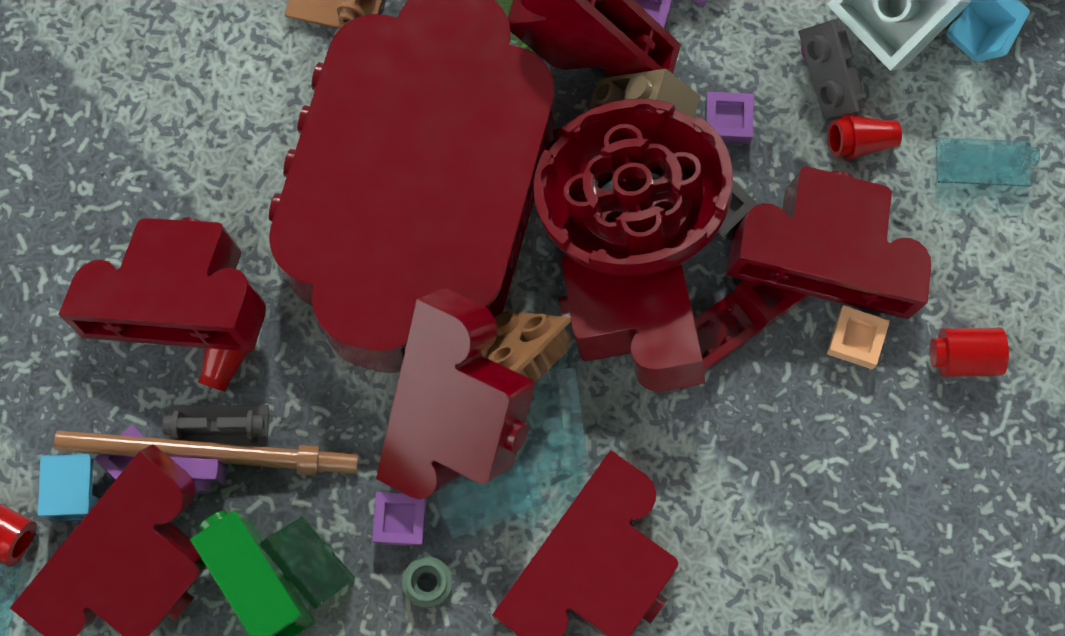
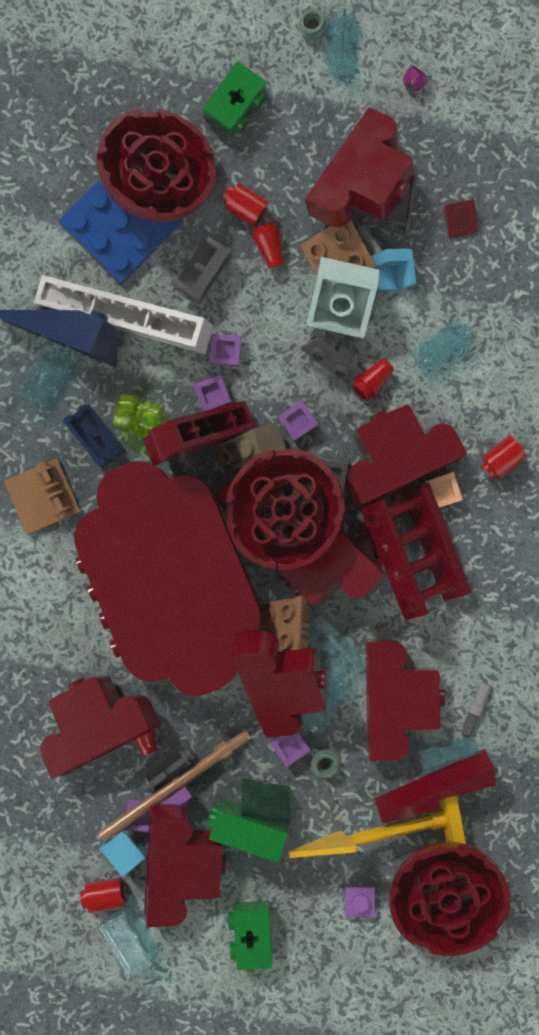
camera: 40 degrees left, 15 degrees up
(801, 388) = (436, 544): none -> dark red fence

